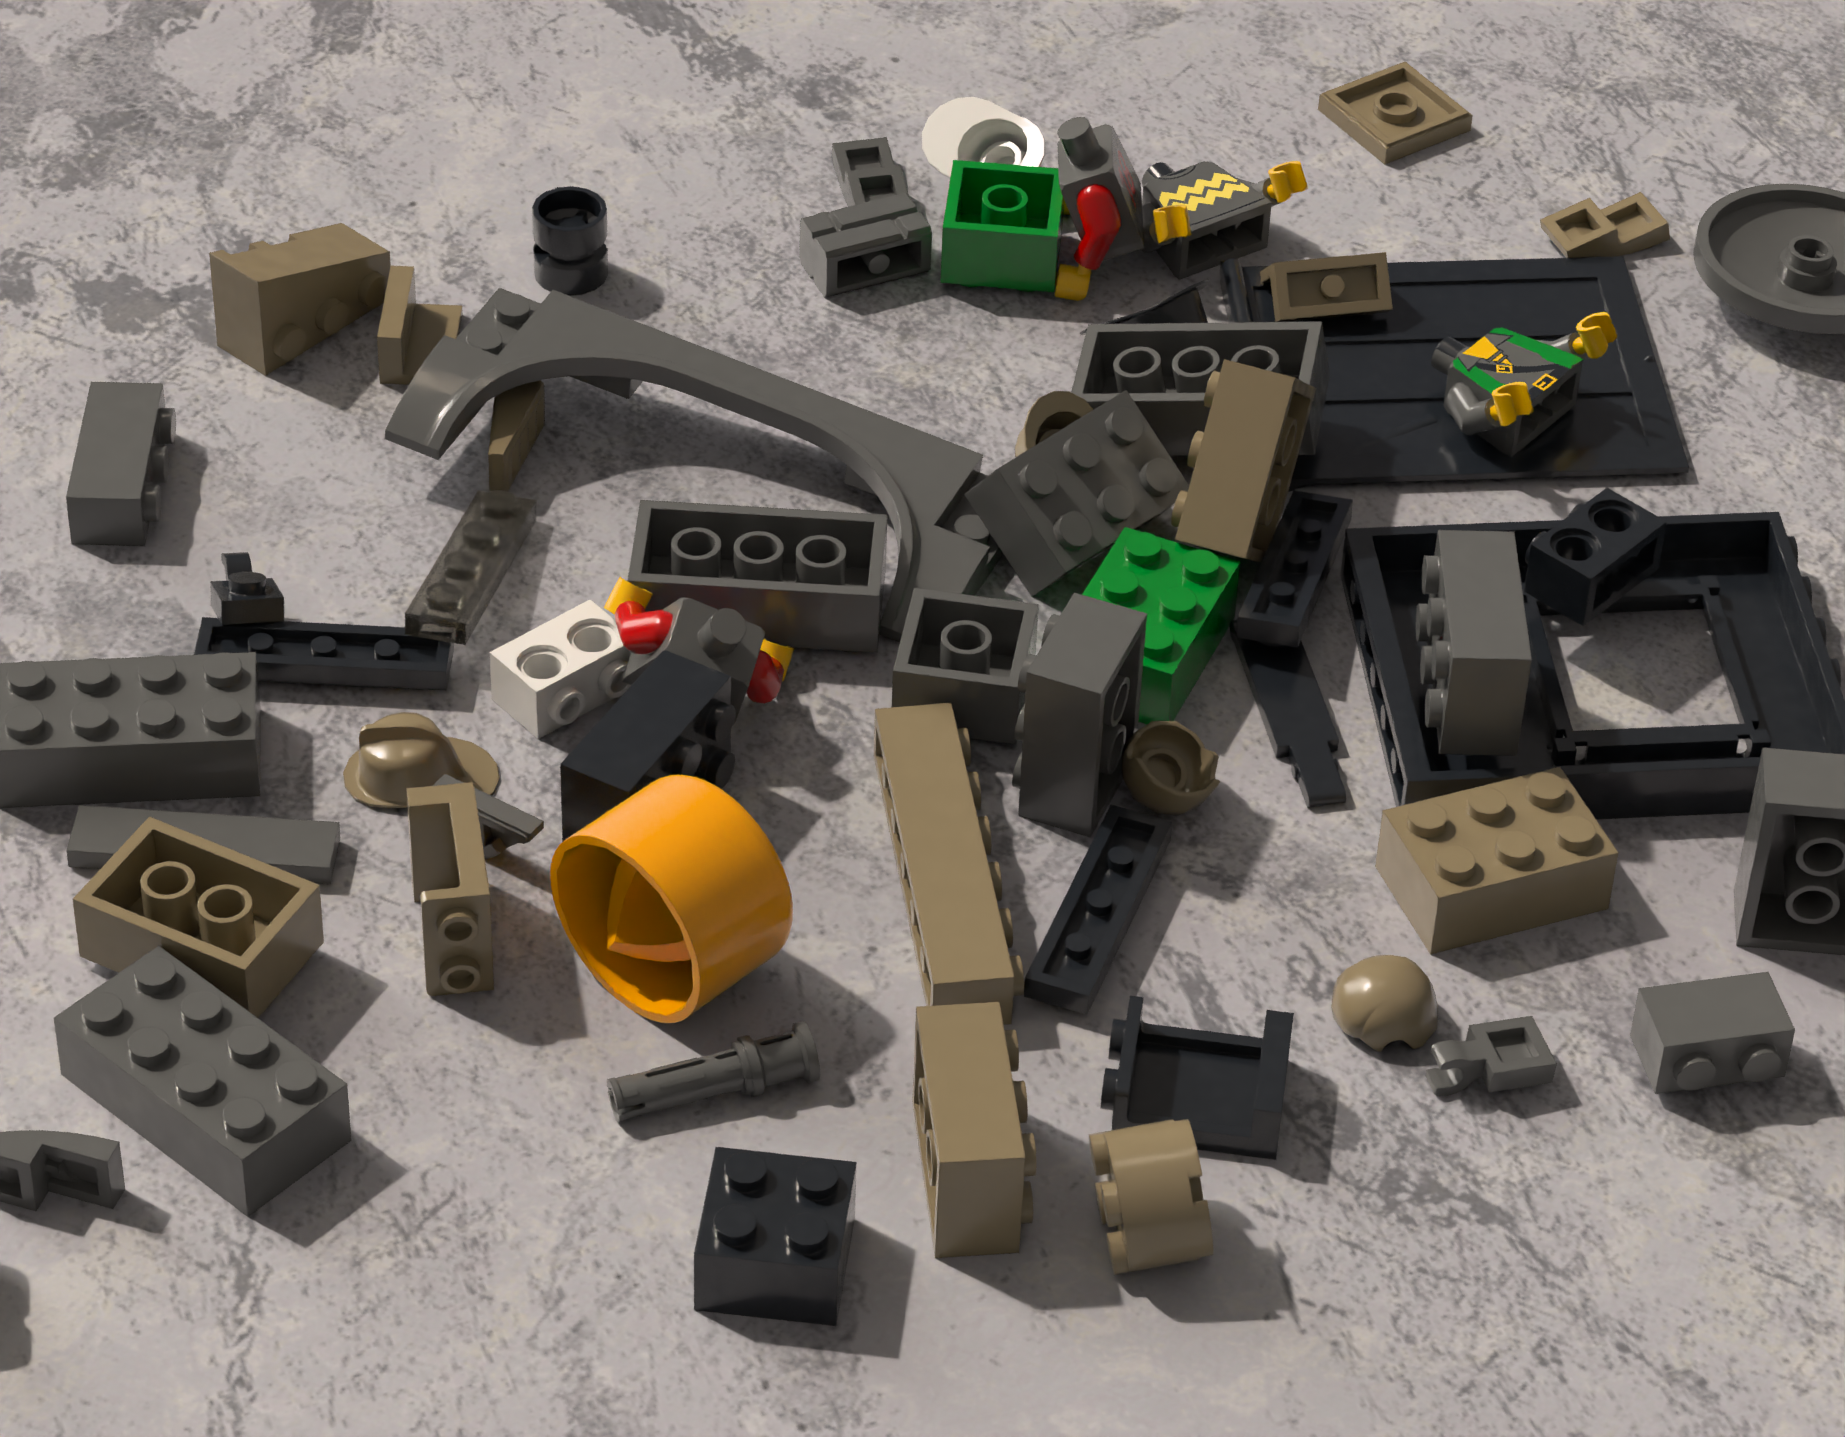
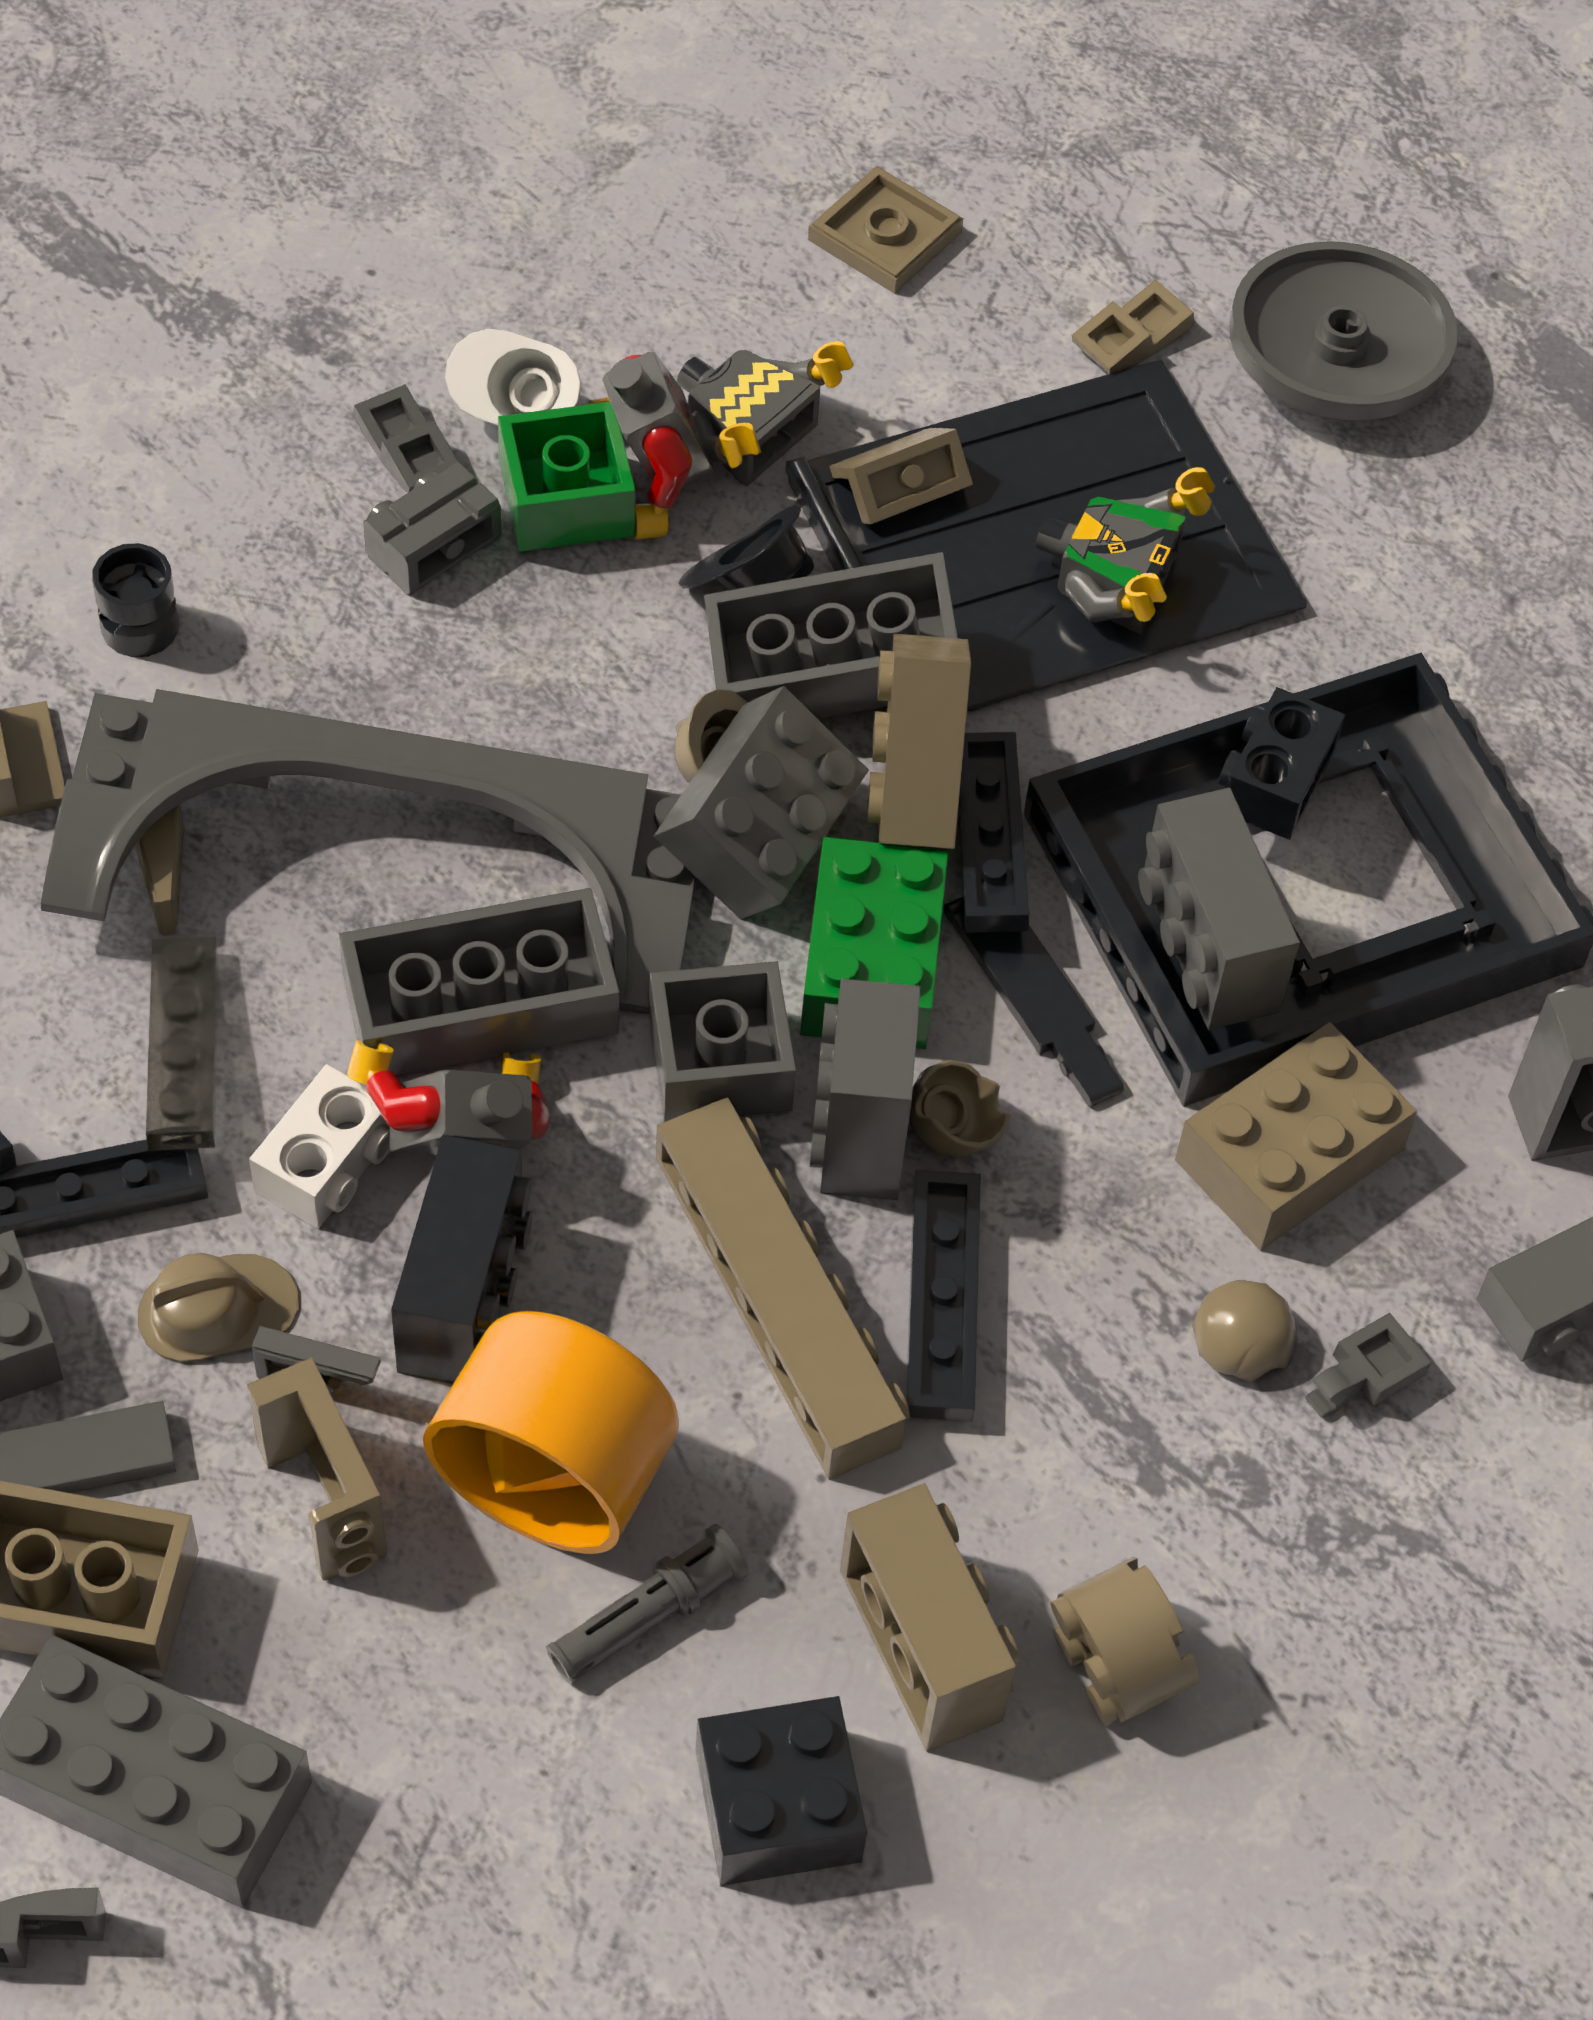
camera: 20 degrees left, 15 degrees up
(1216, 1080) = (1110, 1477): black panel -> none

